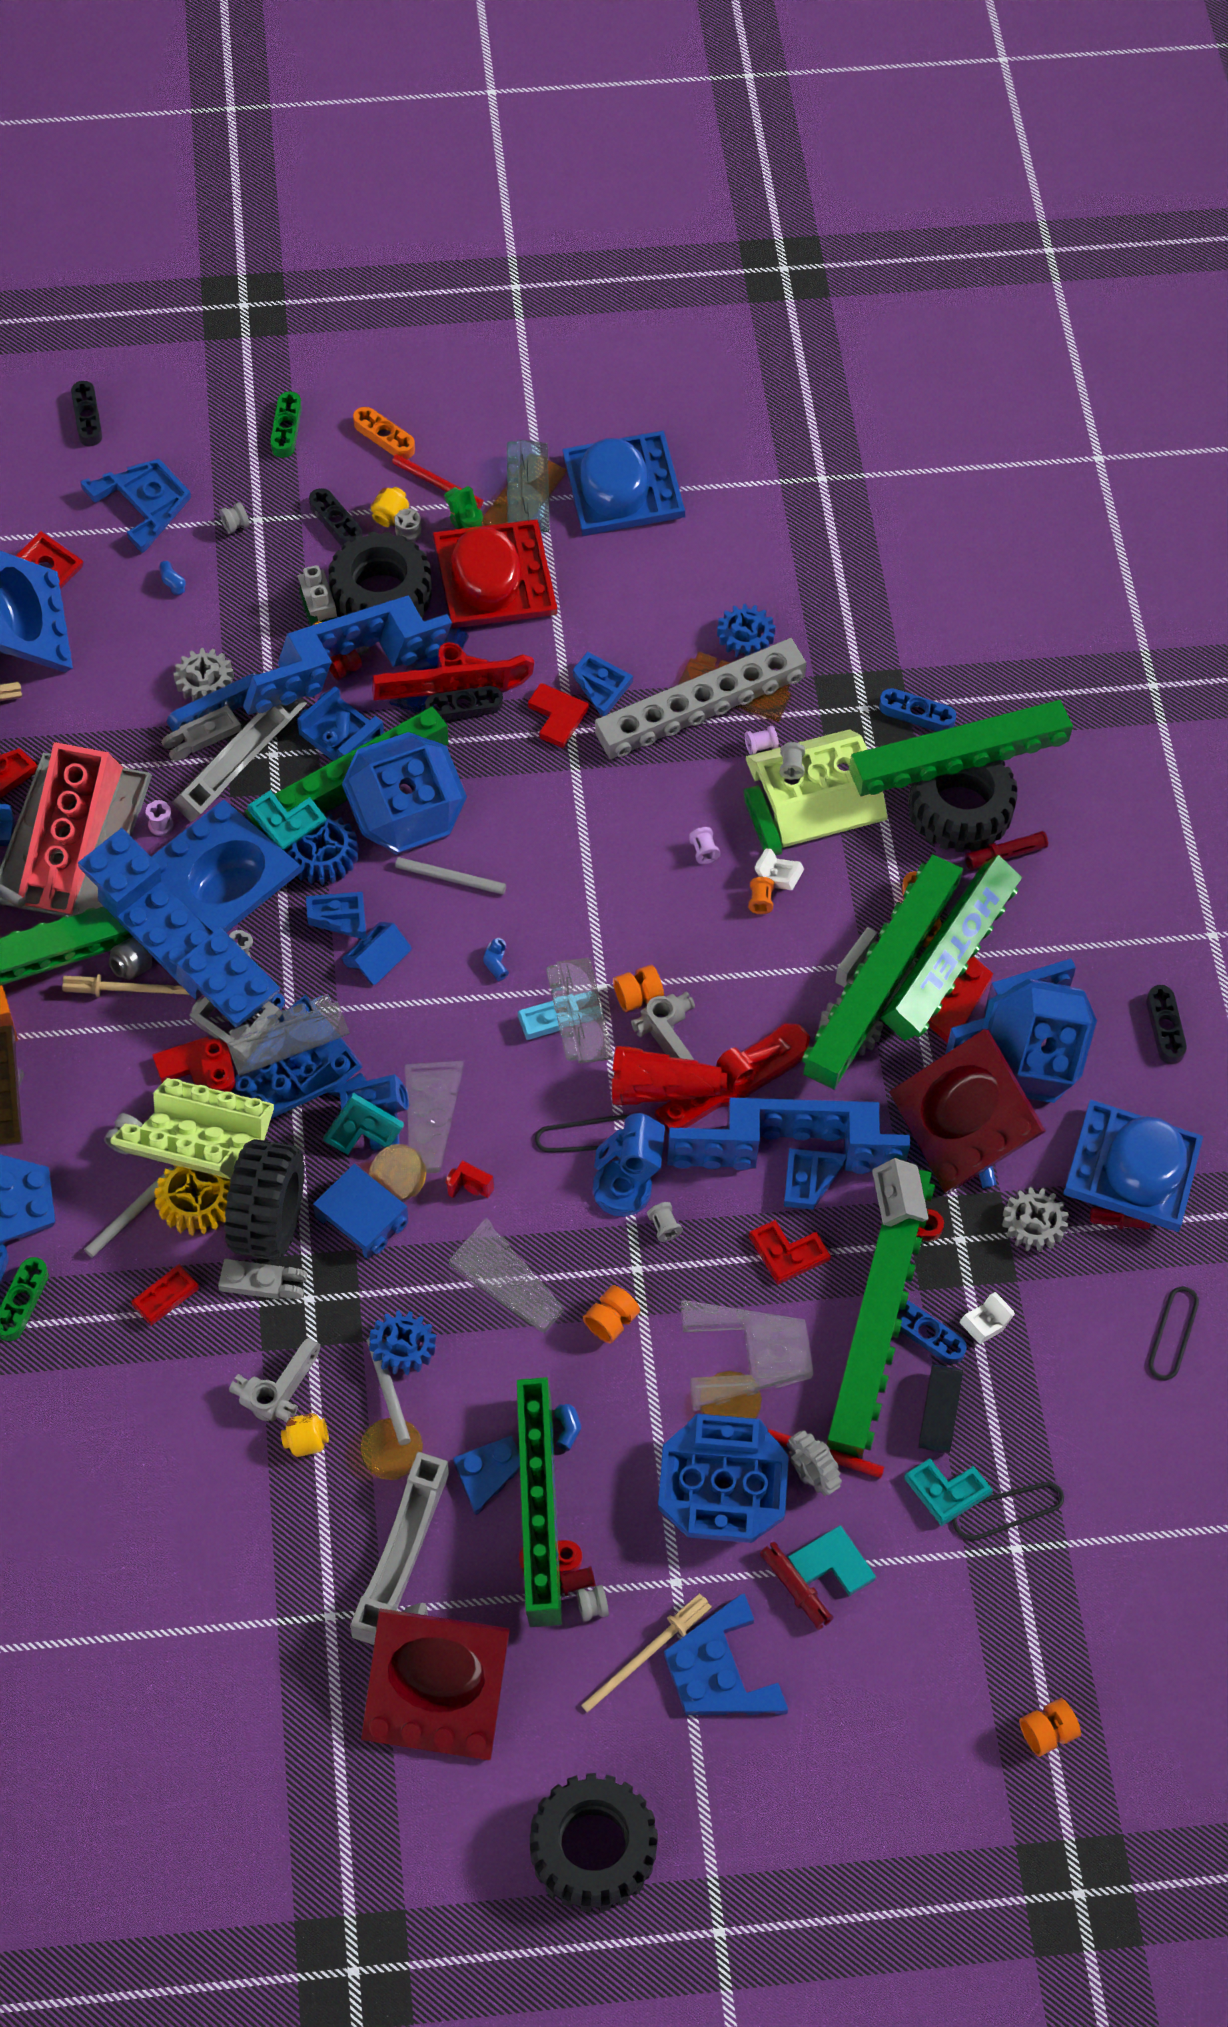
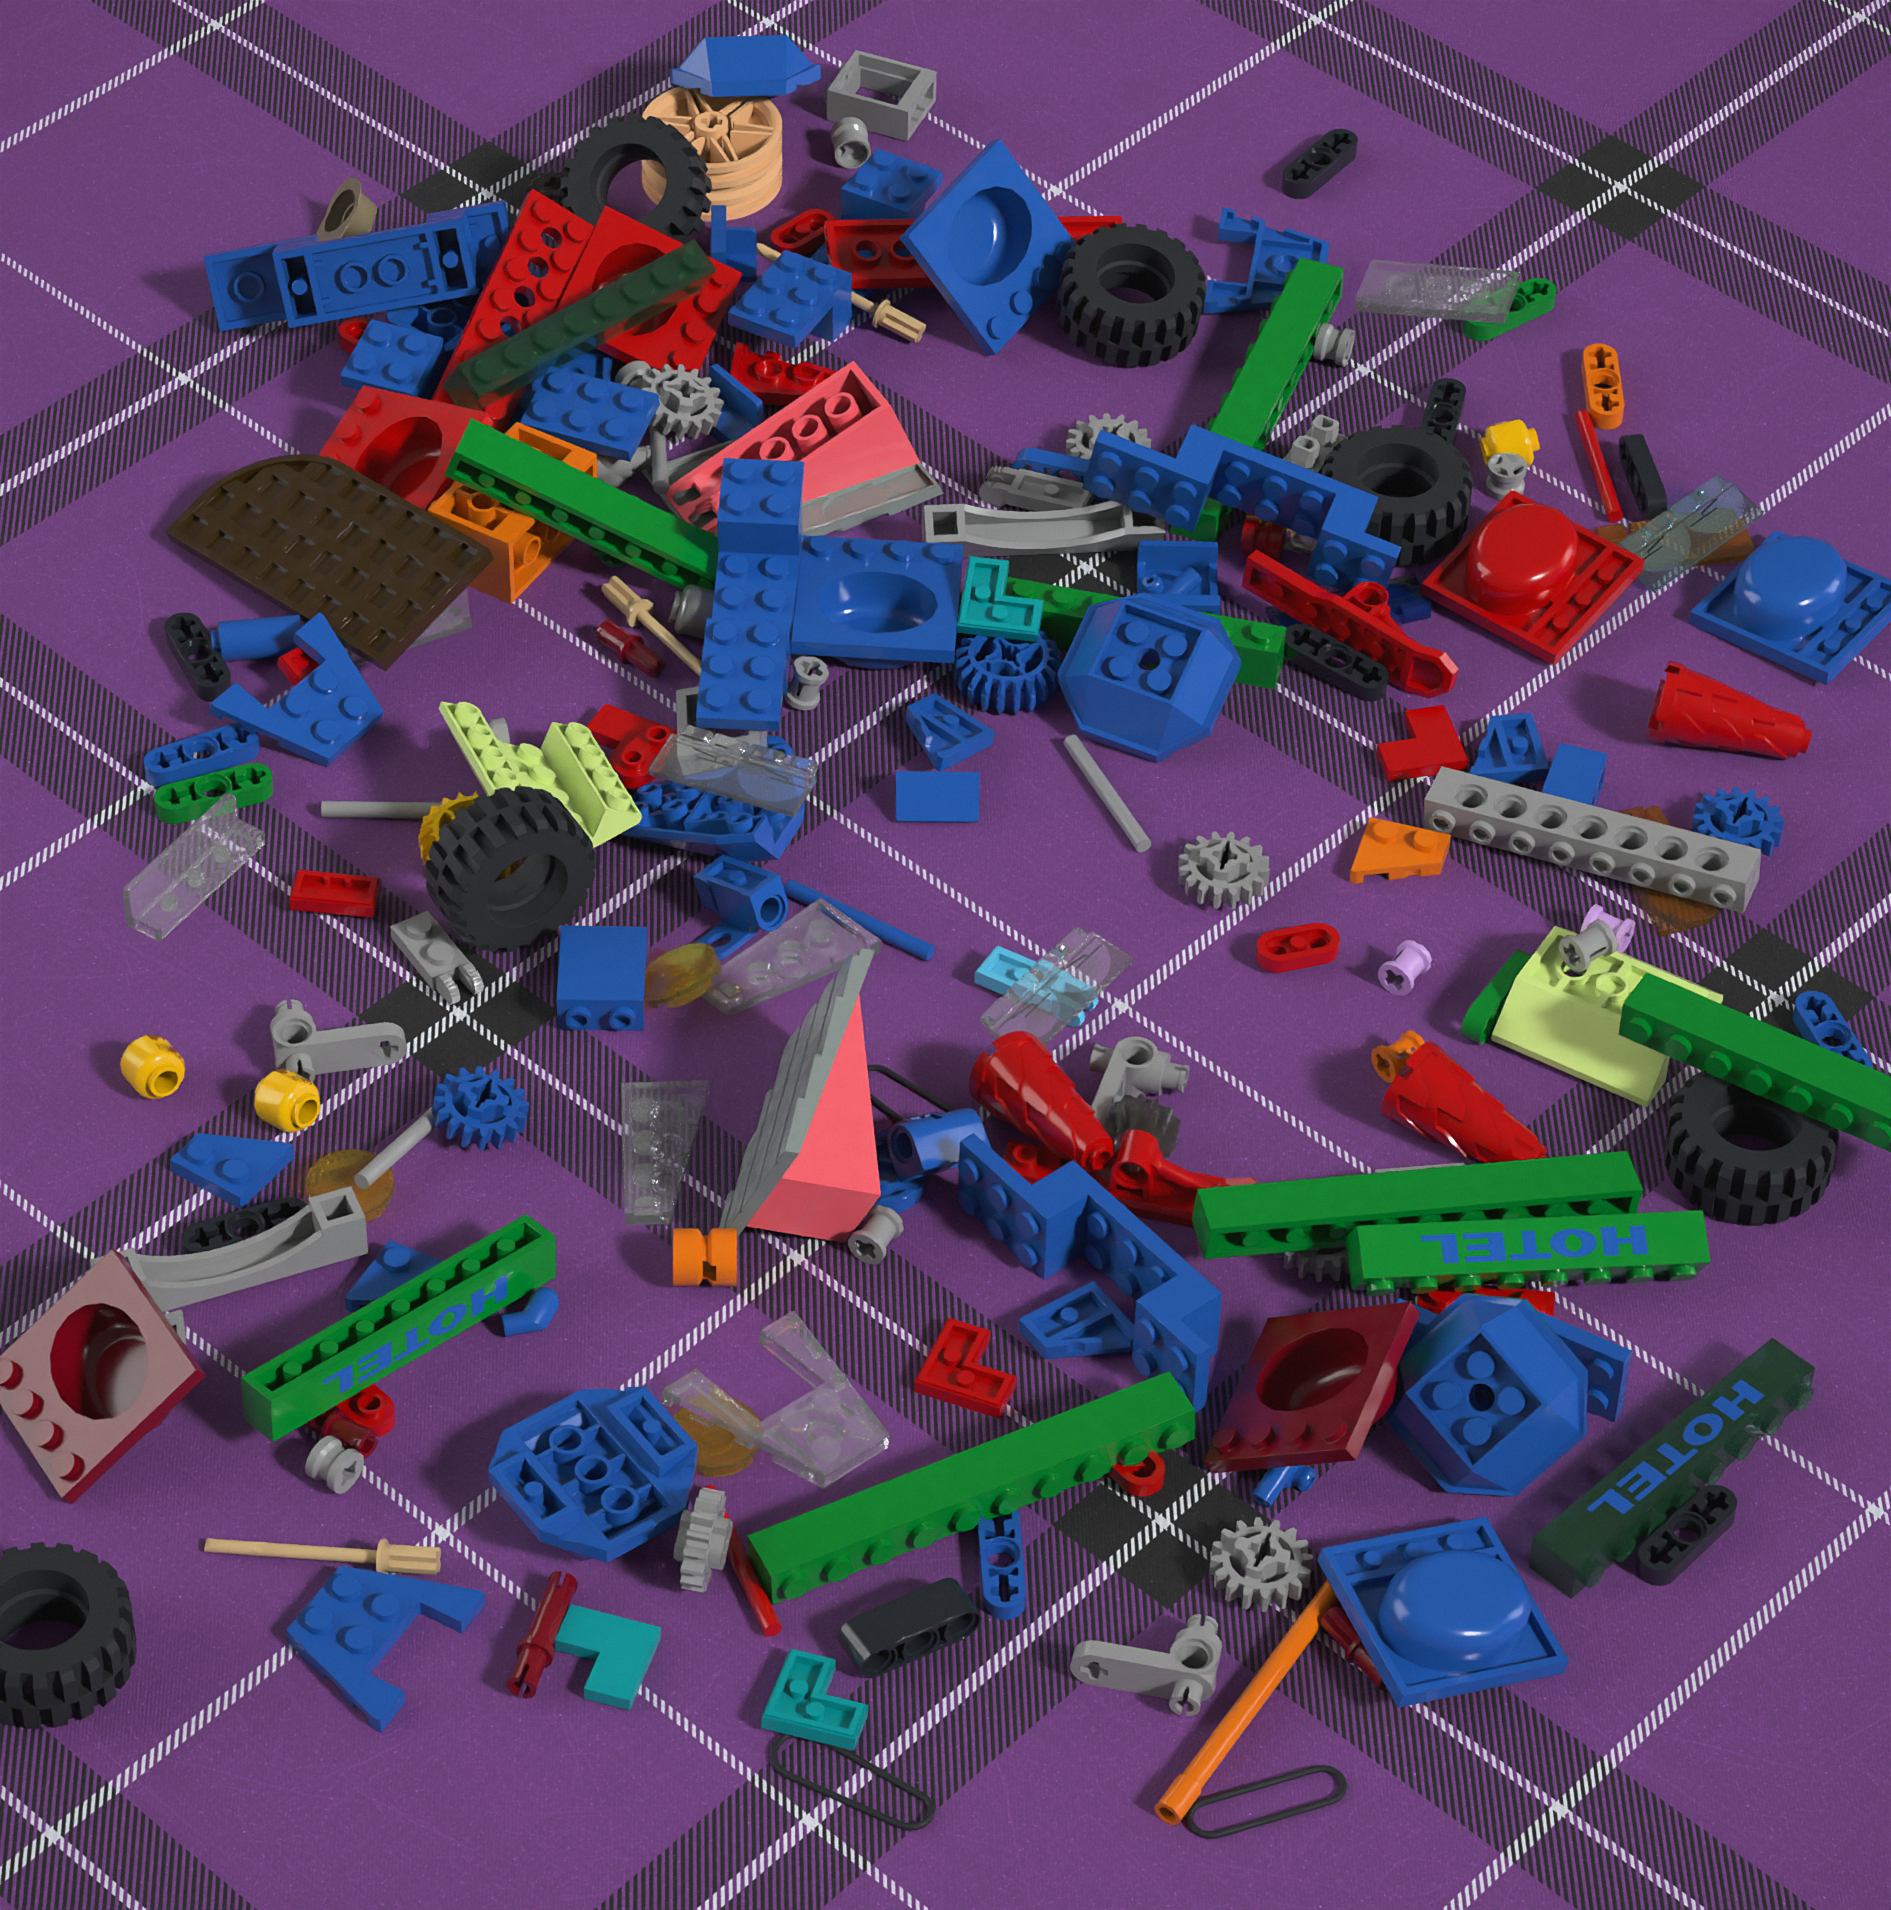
camera: 50 degrees right, 15 degrees down
(77, 1356) = (190, 870): none -> clear panel
(113, 548) = (1124, 329): none -> black tyre
(121, 1011) = (629, 648): none -> dark red axle
(159, 818) = (895, 522): lavender bush -> none
(172, 578) = (1196, 350): blue arm -> none
(213, 1485) = (152, 1067): none -> yellow head
(233, 566) = (1271, 371): none -> green brick
(244, 443) = (1437, 291): none -> clear tile
(318, 1497) = (231, 1165): none -> blue wing
(360, 1543) = (211, 1230): none -> black beam
(361, 1118) = (702, 896): teal tile -> none
(435, 1056) = (876, 927): none -> blue bar
(463, 508) = (1577, 492): green hips -> none
(469, 470) = (1642, 476): none -> black beam
(472, 1178) = (738, 1034): red bracket -> none
(493, 958) = (1045, 890): blue arm -> none
(562, 869) = (1223, 870): none -> light grey gear
(573, 1192) = (815, 1145): none -> piece
(617, 783) = (1399, 851): none -> orange wing
(637, 988) = (1137, 1017): orange wheel -> none
(643, 881) = (1297, 947): none -> red plate
(654, 671) = (1576, 774): none -> blue panel
(666, 581) = (1708, 713): none -> red cone
(711, 1044) = (1143, 1115): none -> clear smoke gear
(782, 872) = (1449, 1034): white bracket -> none
(822, 902) = (1449, 1107): none -> red cone
(899, 1192) = (1132, 1391): light grey panel -> none
(988, 1318) = (1073, 1600): white bracket -> none
(1007, 849) = (1748, 1239): dark red pin -> none
(1069, 1314) = (1181, 1676): none -> light grey piece
(1126, 998) = (1671, 1468): none -> clear green brick
(1140, 1360) = (1189, 1784): none -> orange piece

